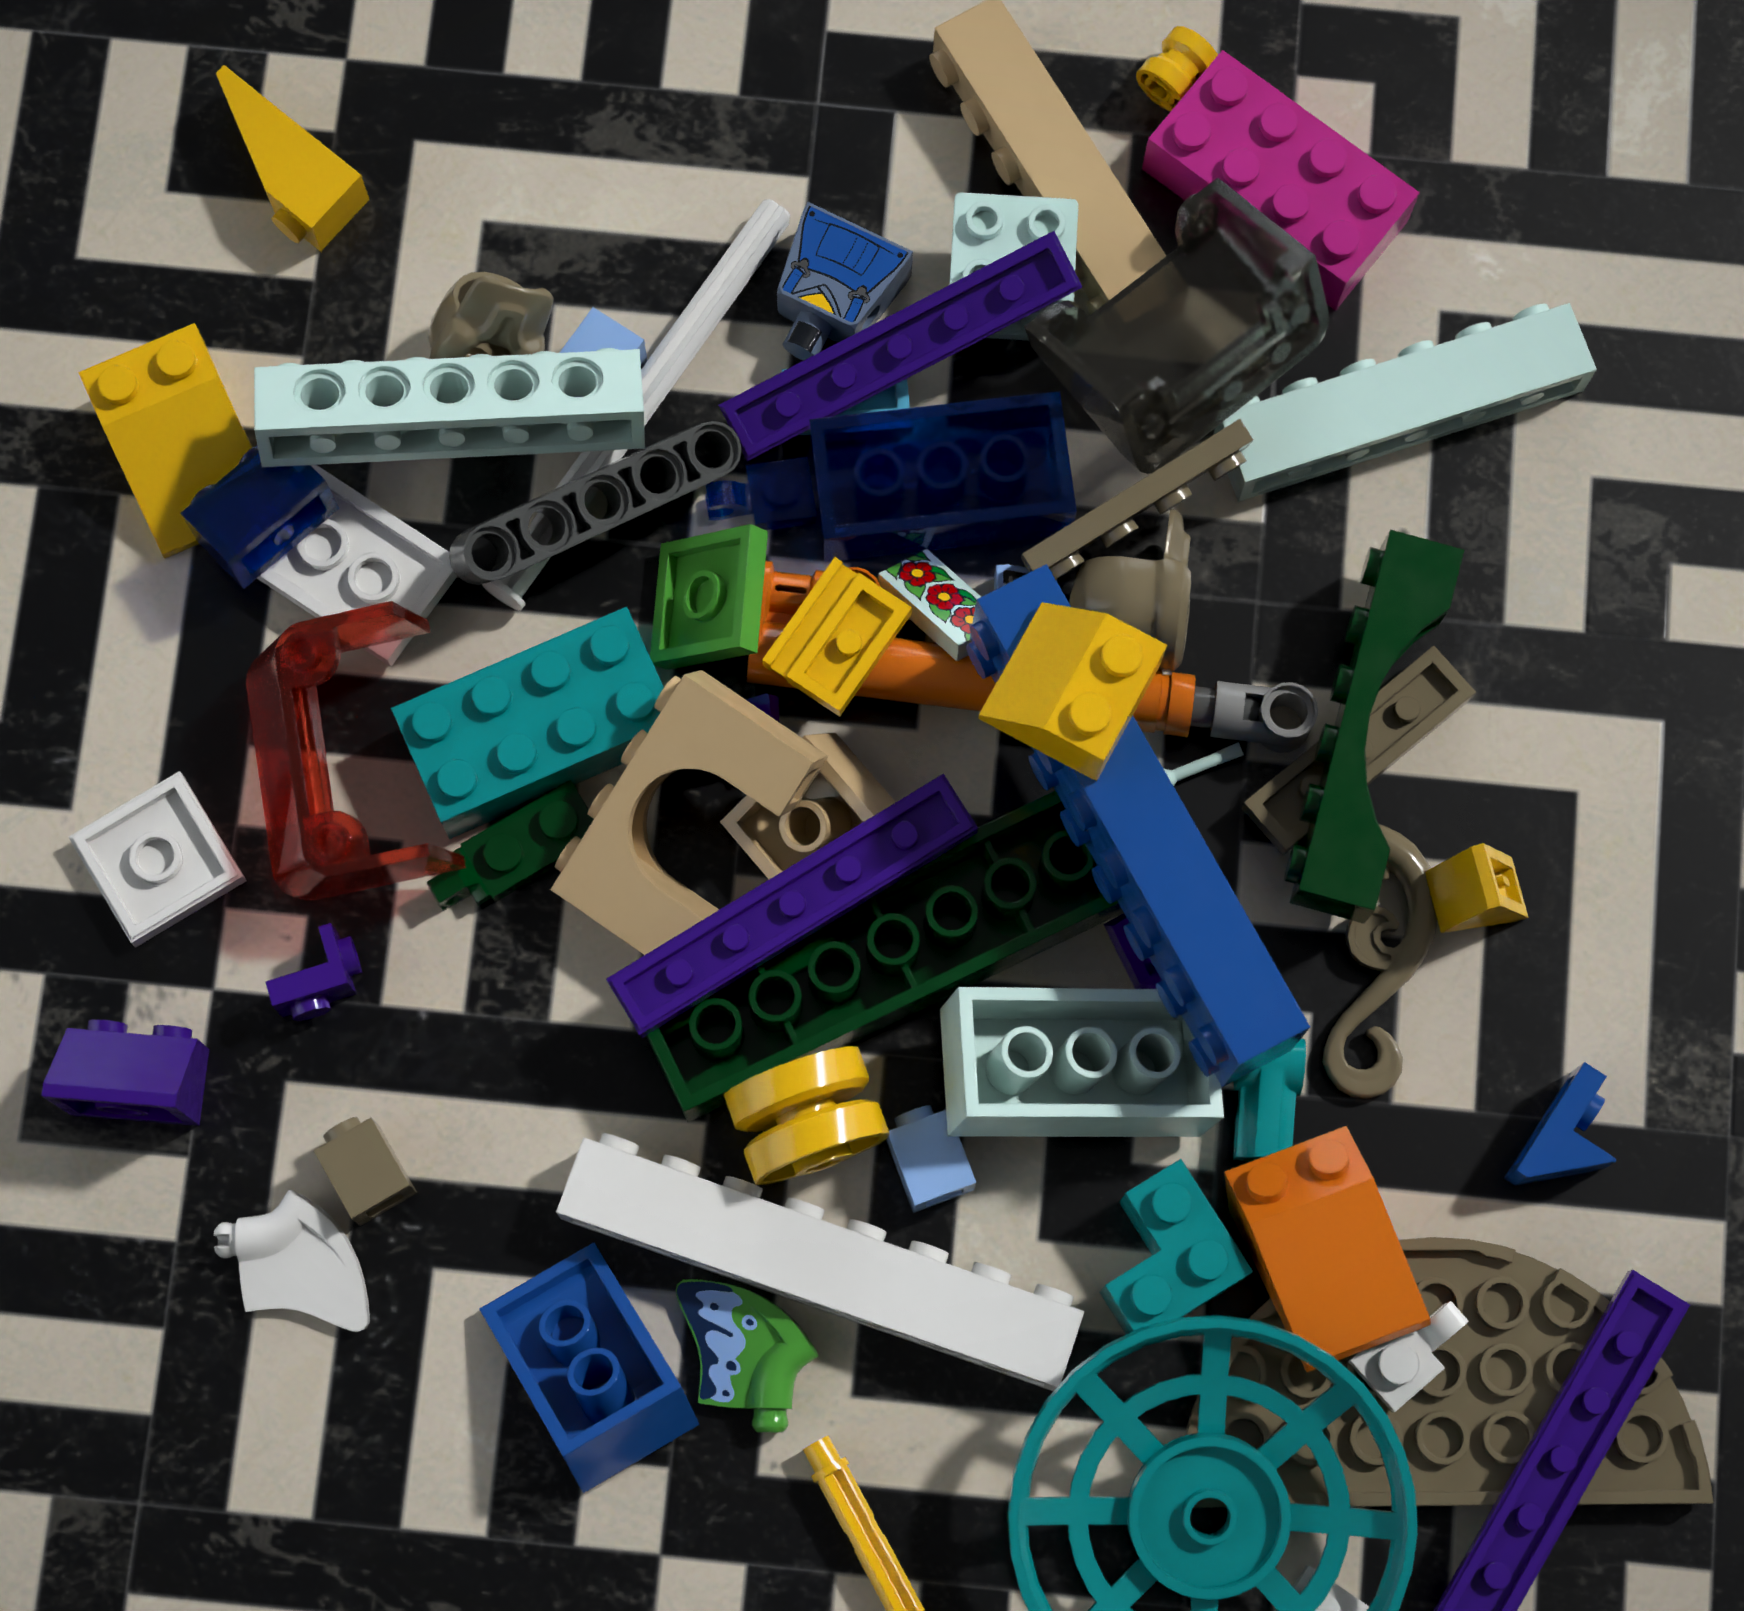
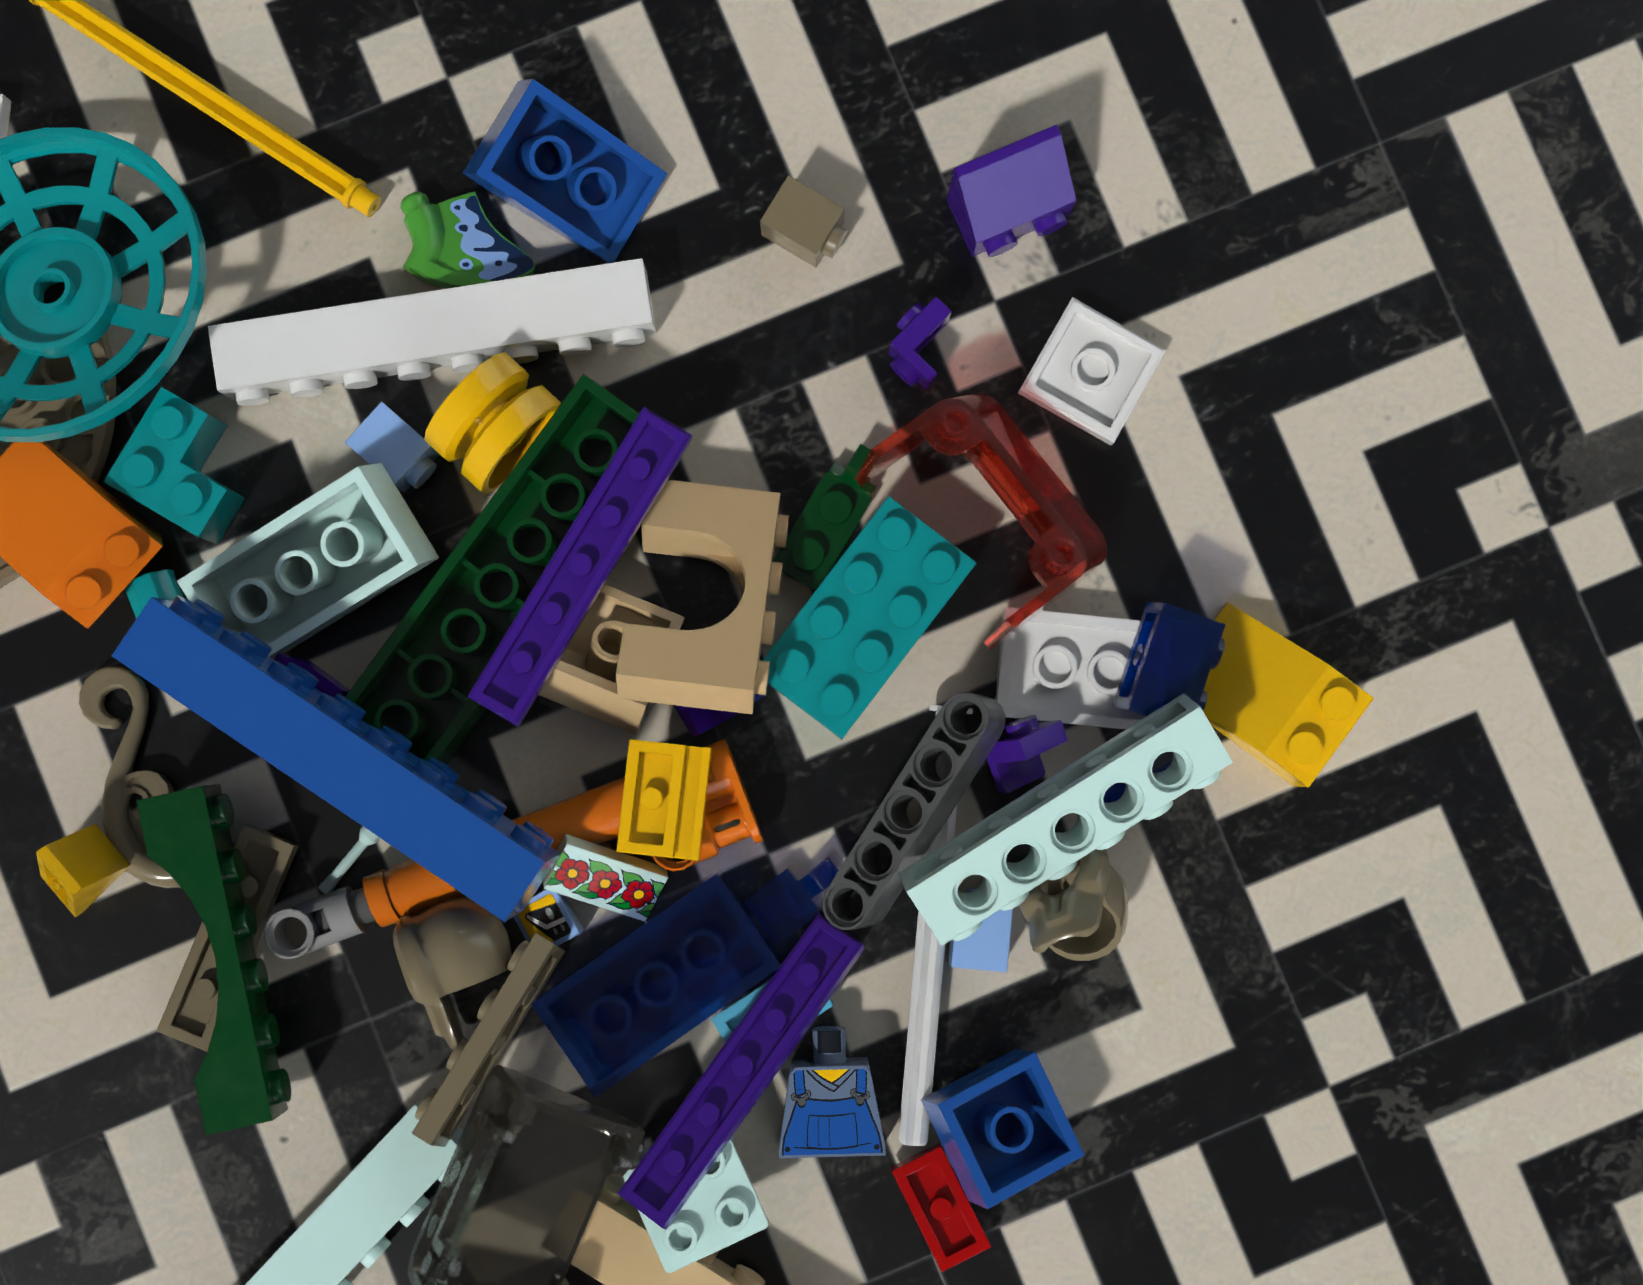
camera: 150 degrees right, 10 degrees up
(297, 1263) = (817, 137): white arm -> none
(304, 180) = (1308, 962): yellow slope -> none
(450, 508) = (1017, 753): none -> dark purple bracket
(680, 170) = (1002, 1127): none -> blue brick
(709, 597) = (786, 785): bright green plate -> none
(783, 137) = (940, 1207): none -> red plate
(1073, 685) = (423, 826): yellow slope -> none

